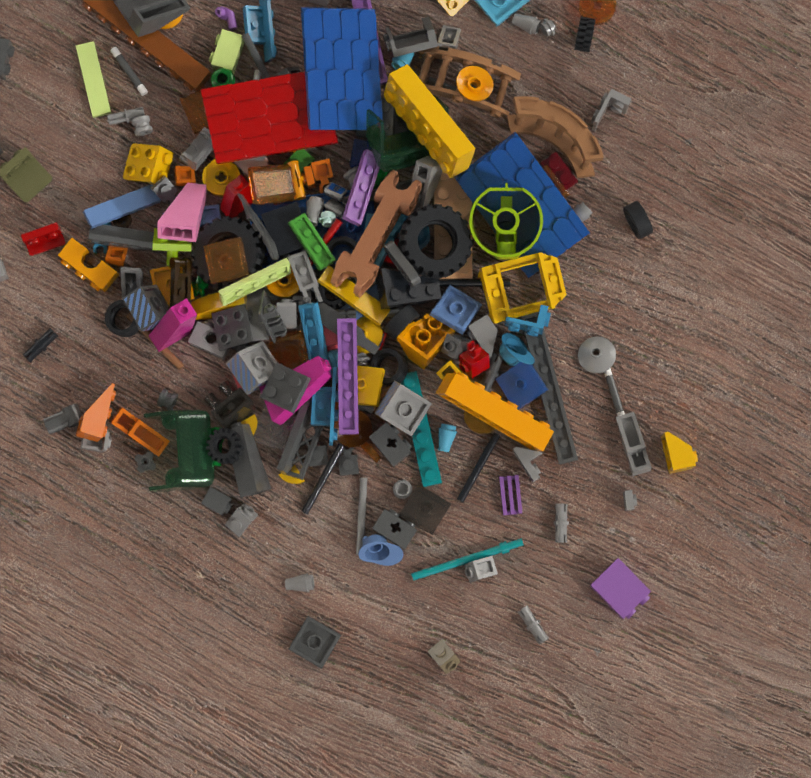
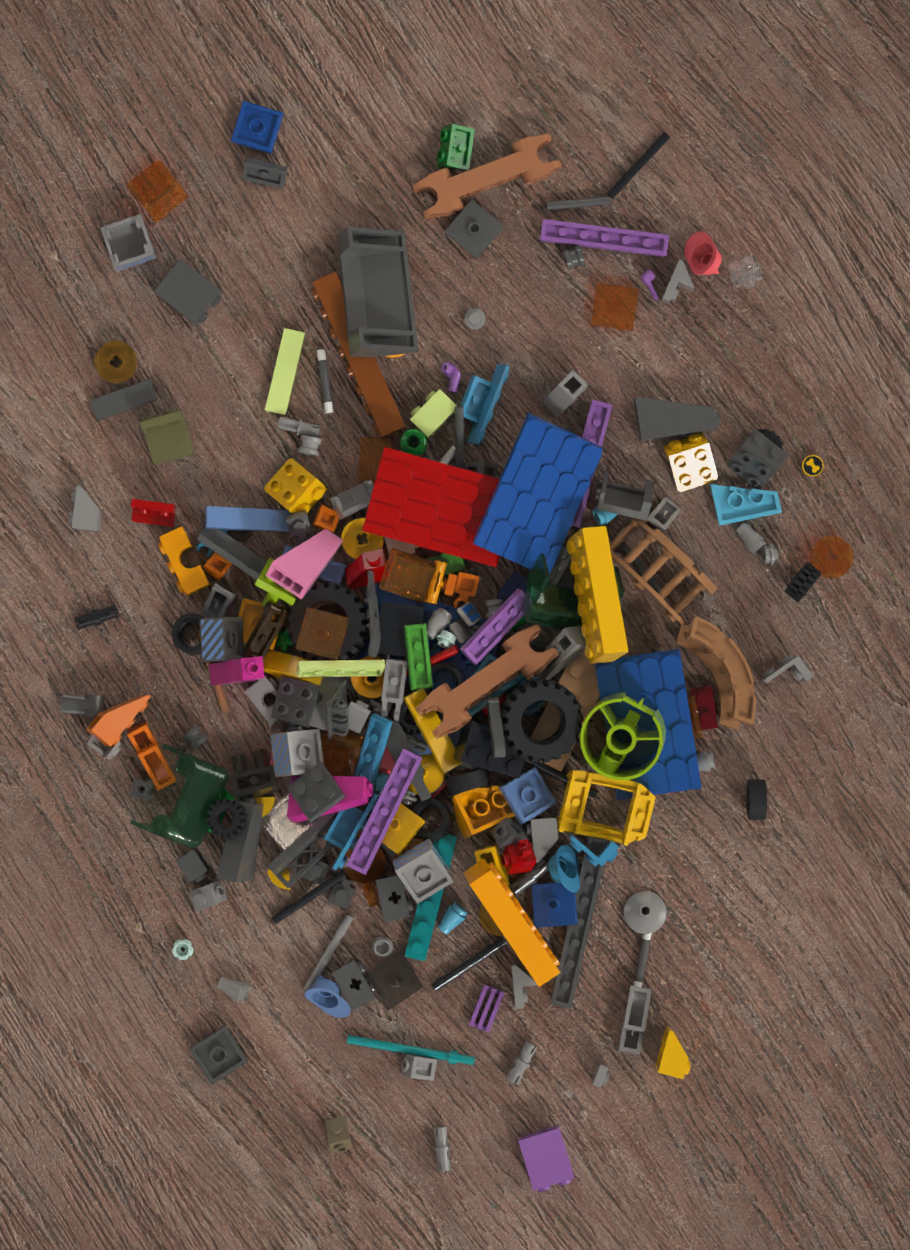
camera: 20 degrees right, 5 degrees up
(242, 568) = (182, 955): none -> light aqua plate
(479, 78) = (671, 574): light orange dish -> none

